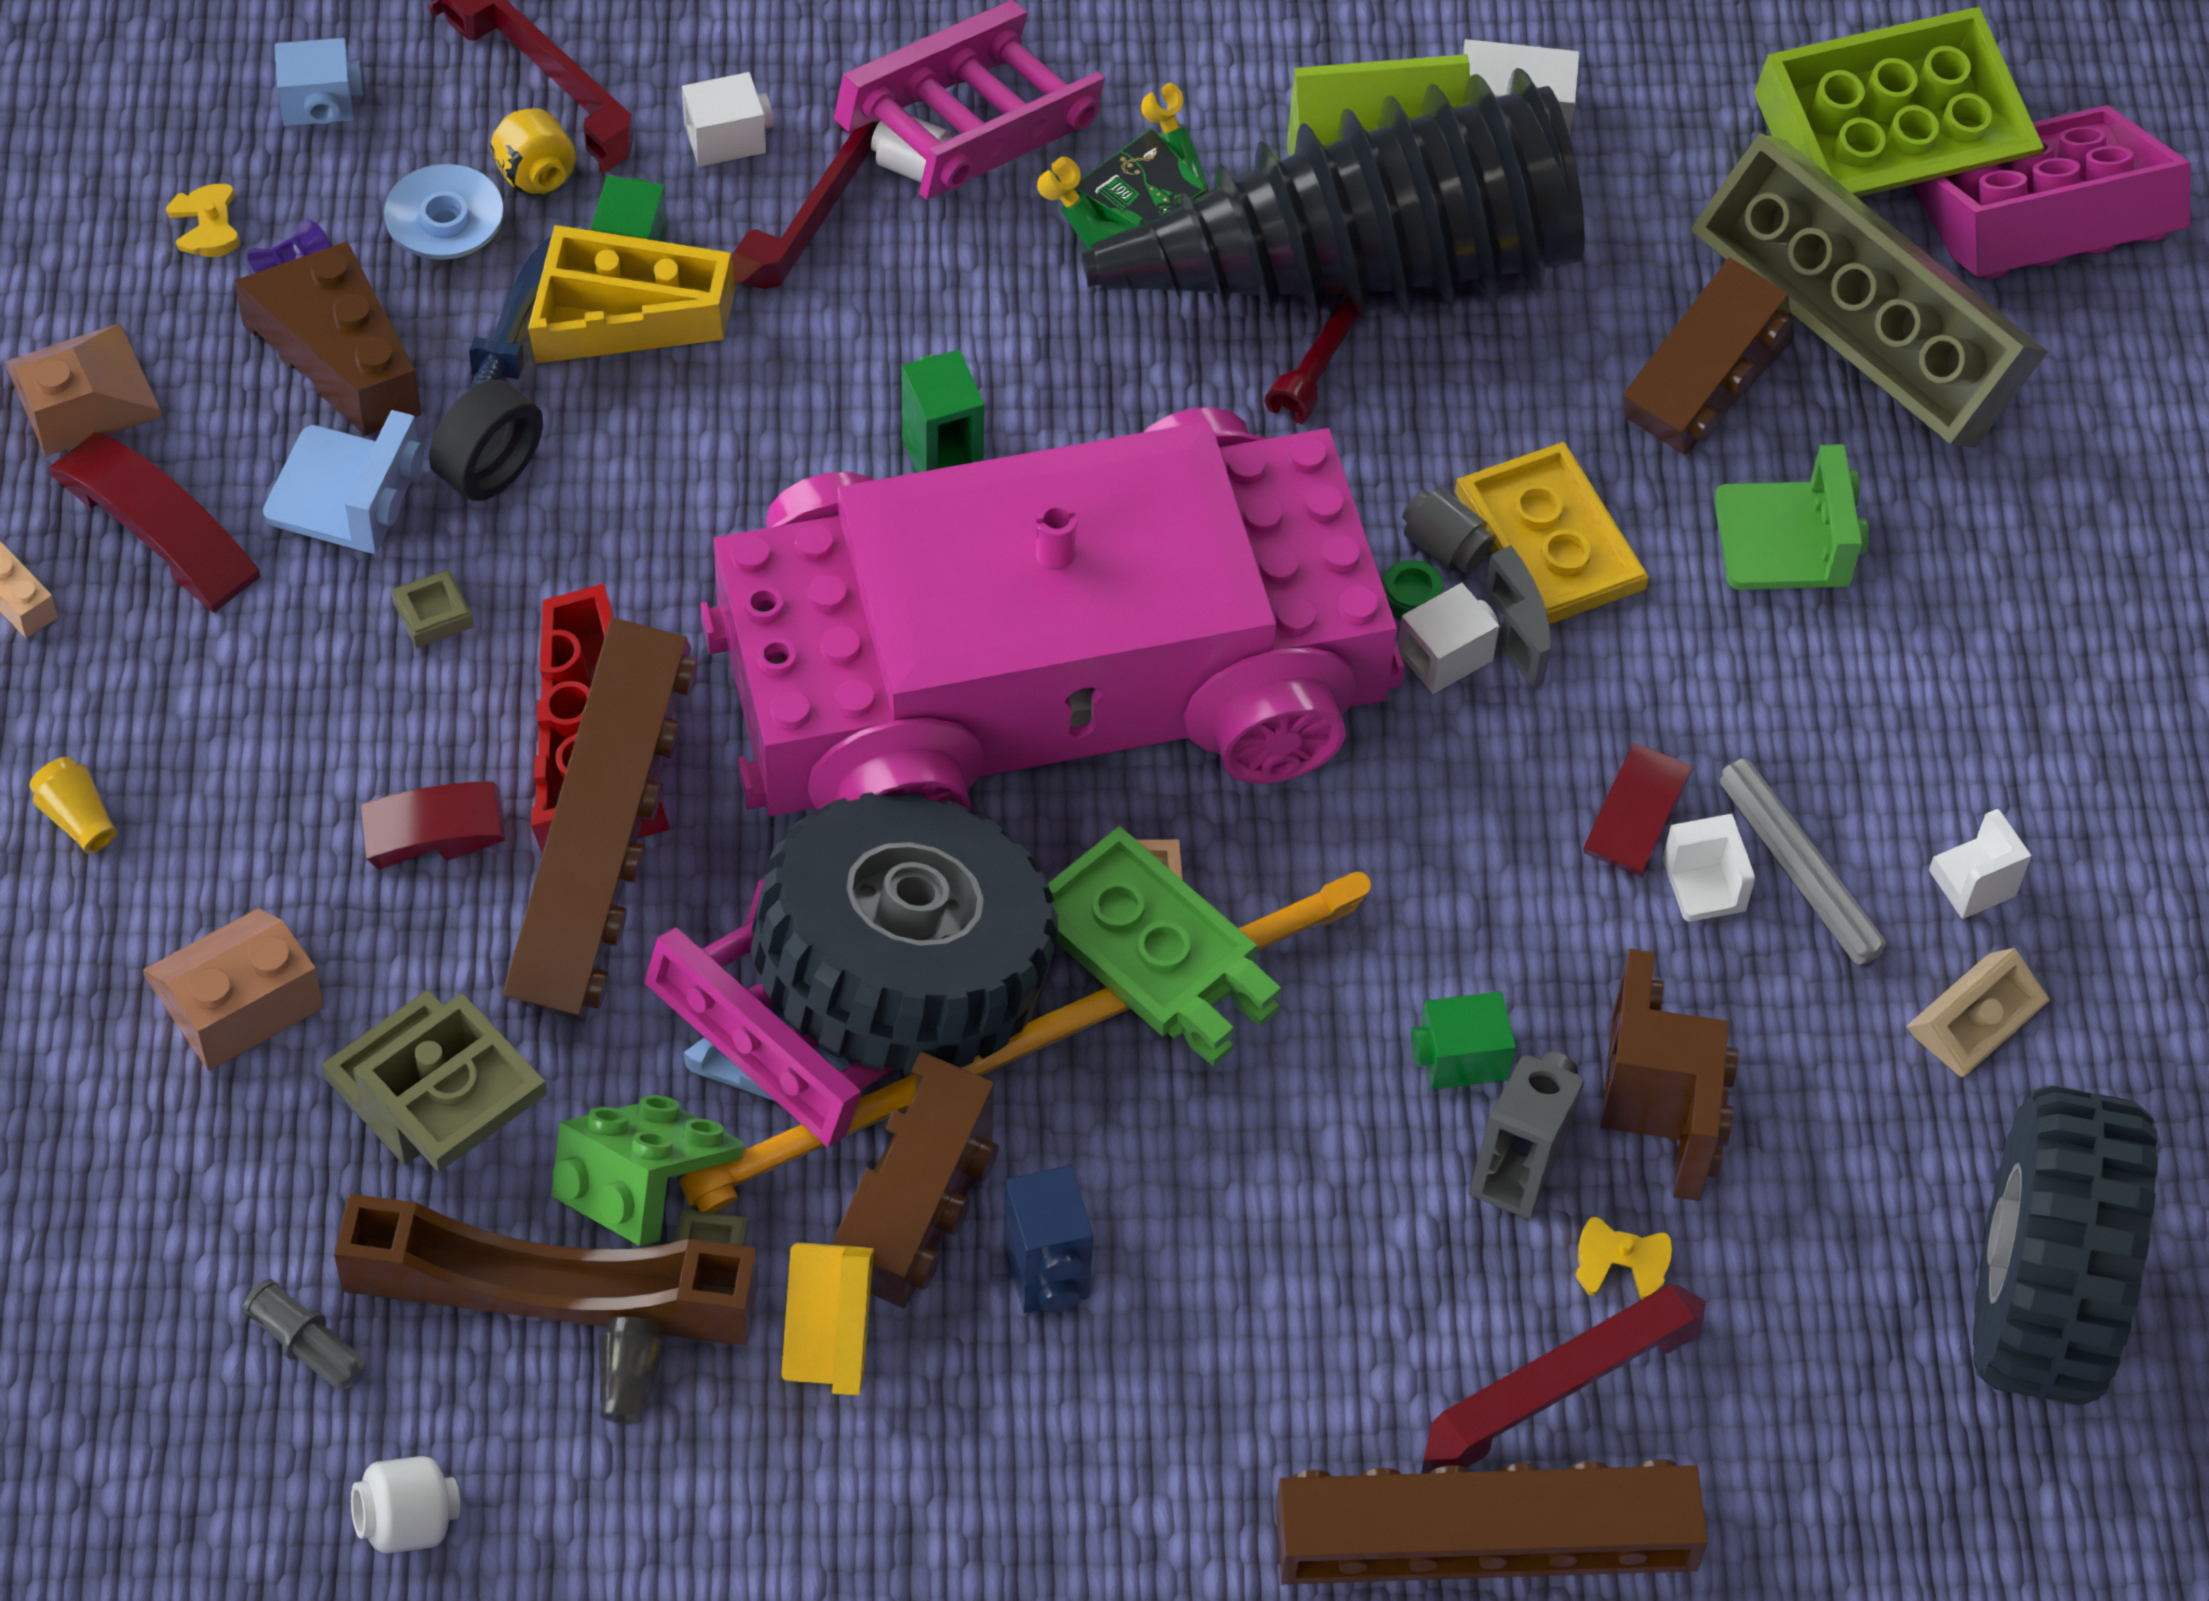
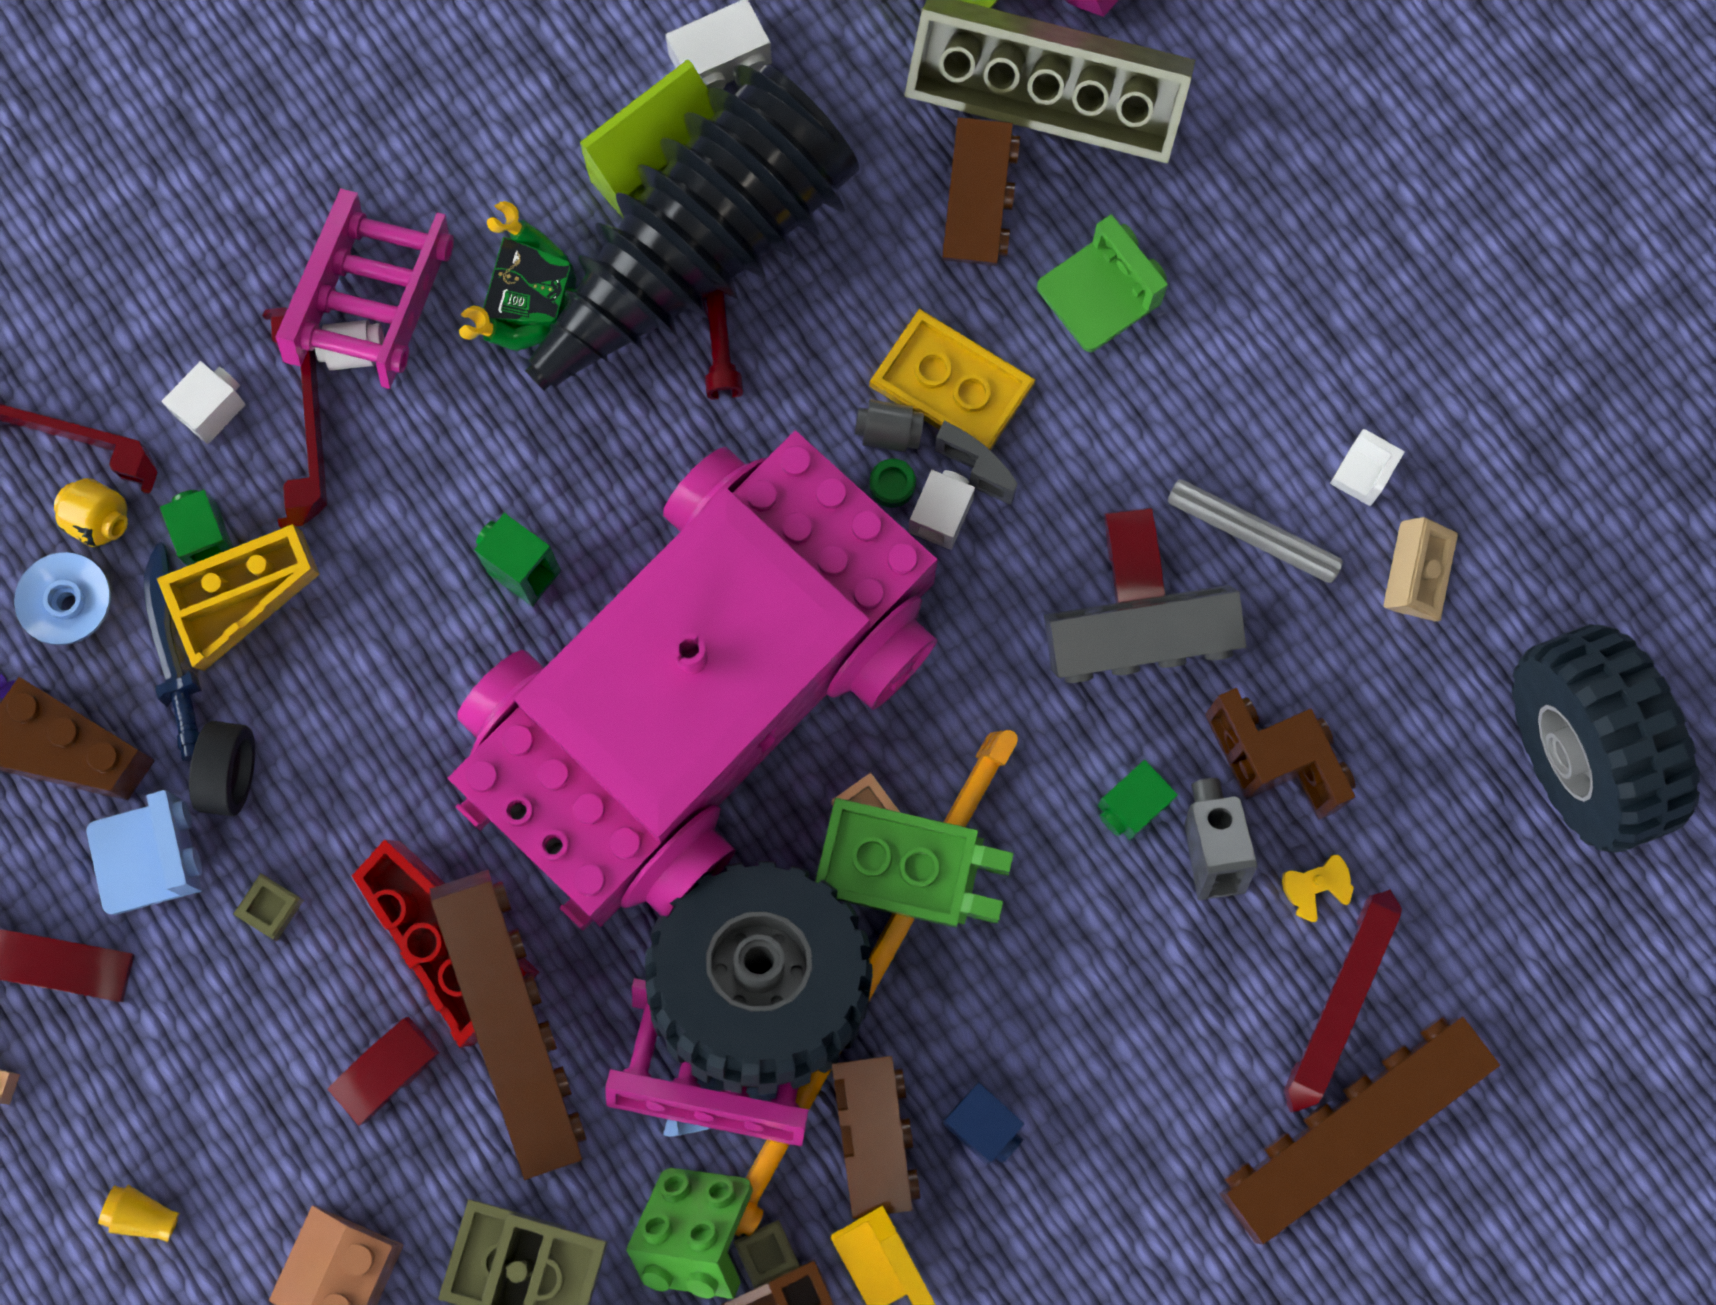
camera: 30 degrees left, 20 degrees up
(1595, 877) = (1145, 632): none -> dark grey brick
(1708, 868) = (1204, 568): white panel -> none

